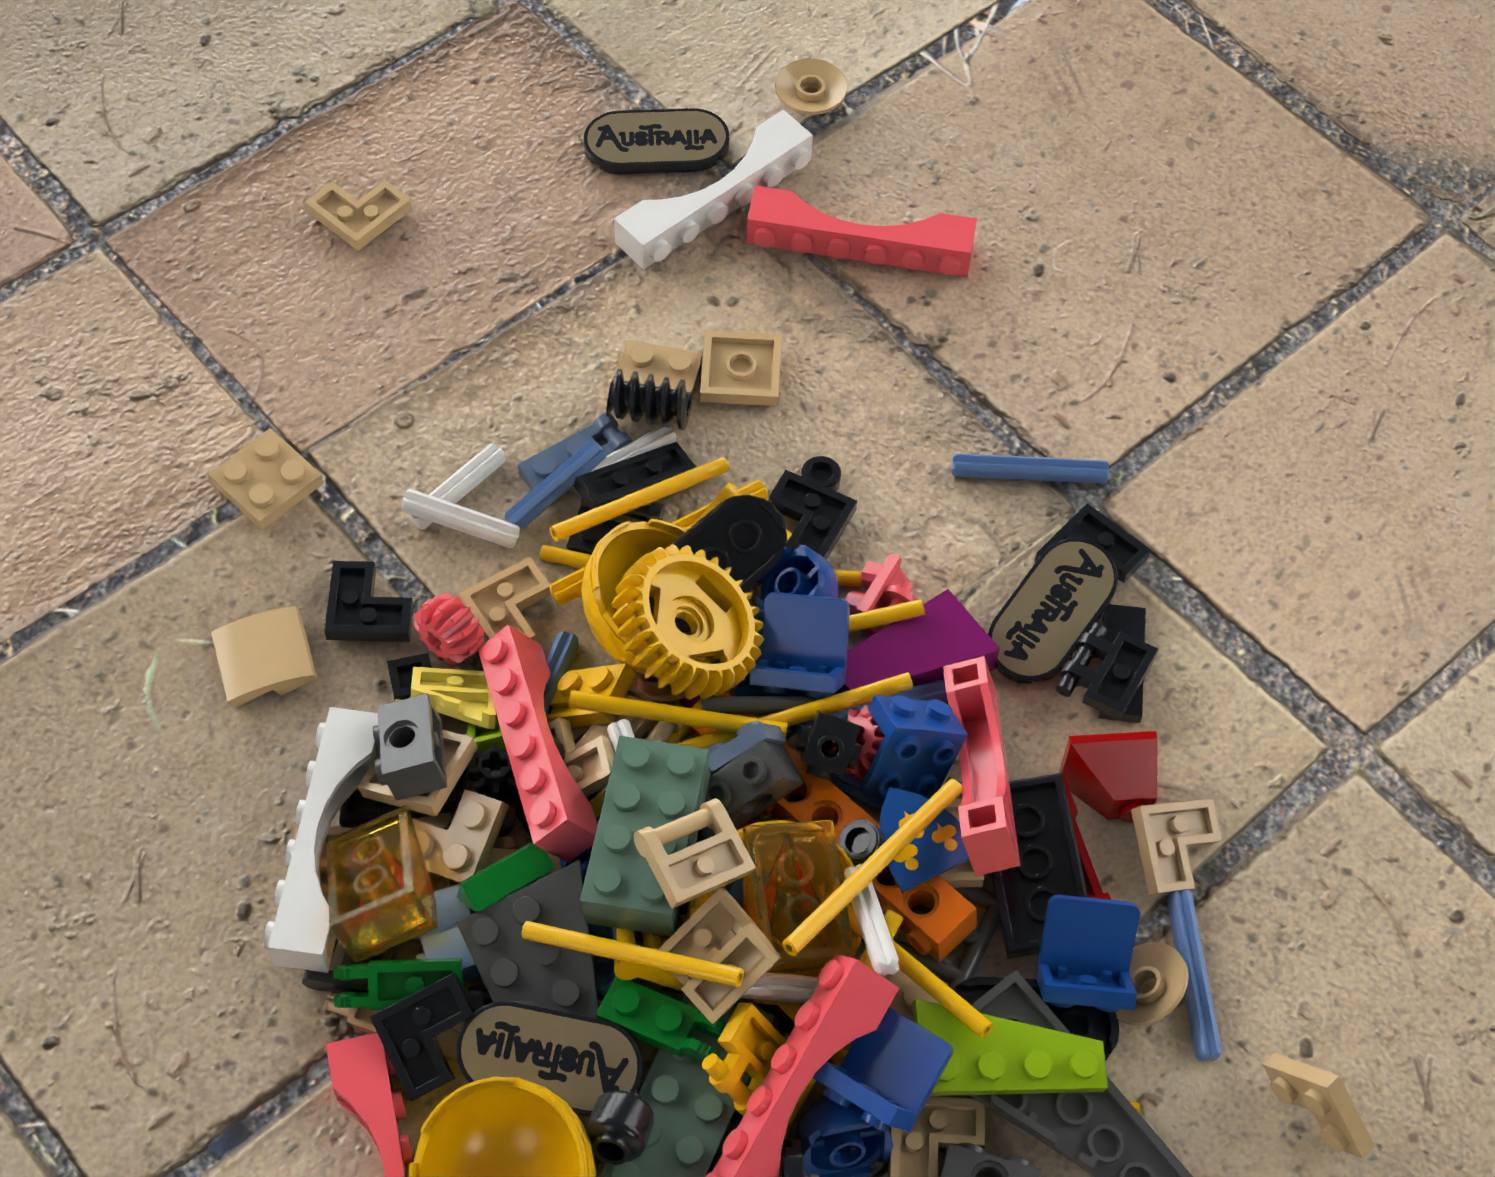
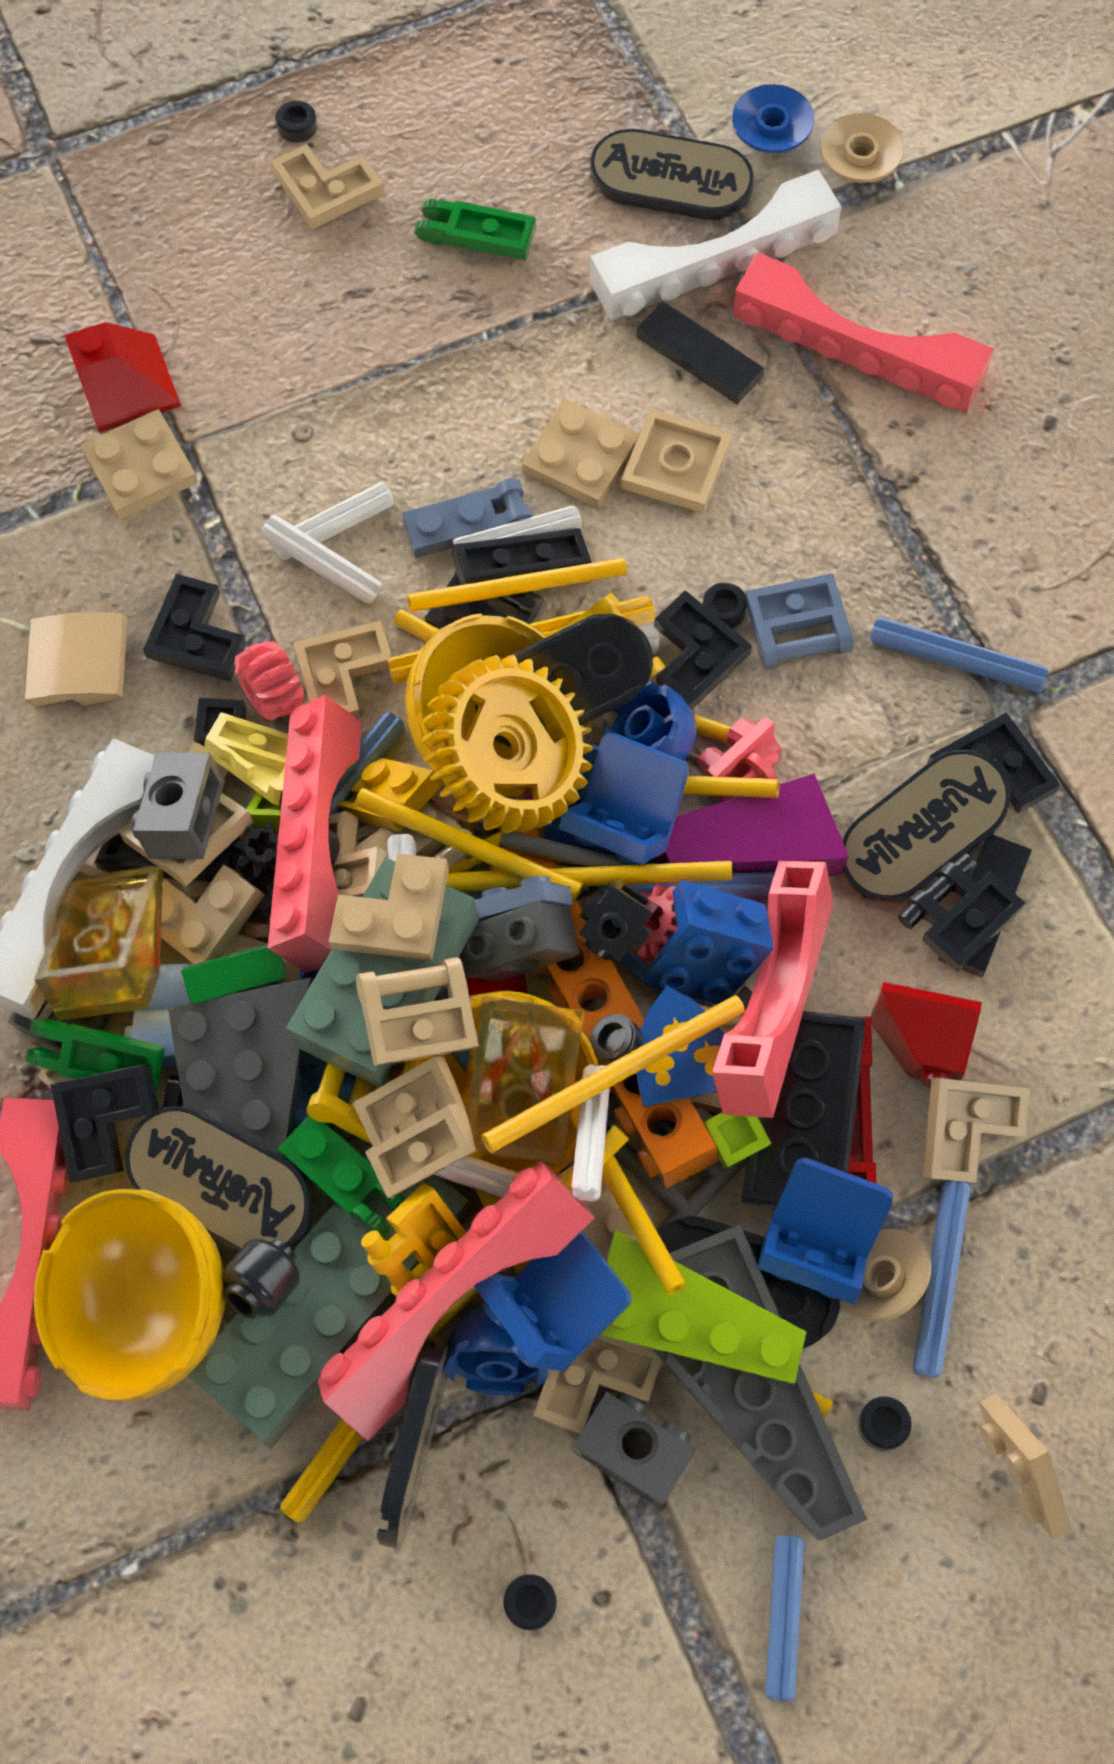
camera: 20 degrees right, 10 degrees up
(225, 407) = (121, 373): none -> red slope
(314, 166) = (296, 121): none -> black tile
(503, 218) = (476, 228): none -> green hinge
(555, 485) = (432, 547): medium blue axle -> none
(633, 954) = (328, 1100): yellow piece -> none
(649, 400) = (560, 477): black piece -> none
(653, 786) = (402, 924): none -> tan plate
(729, 78) = (773, 118): none -> blue dish
(730, 277) = (700, 352): none -> black tile
(885, 461) = (797, 607): none -> sand blue plate
(989, 895) = (736, 1136): none -> lime tile
(1188, 1108) = (884, 1423): none -> black tile

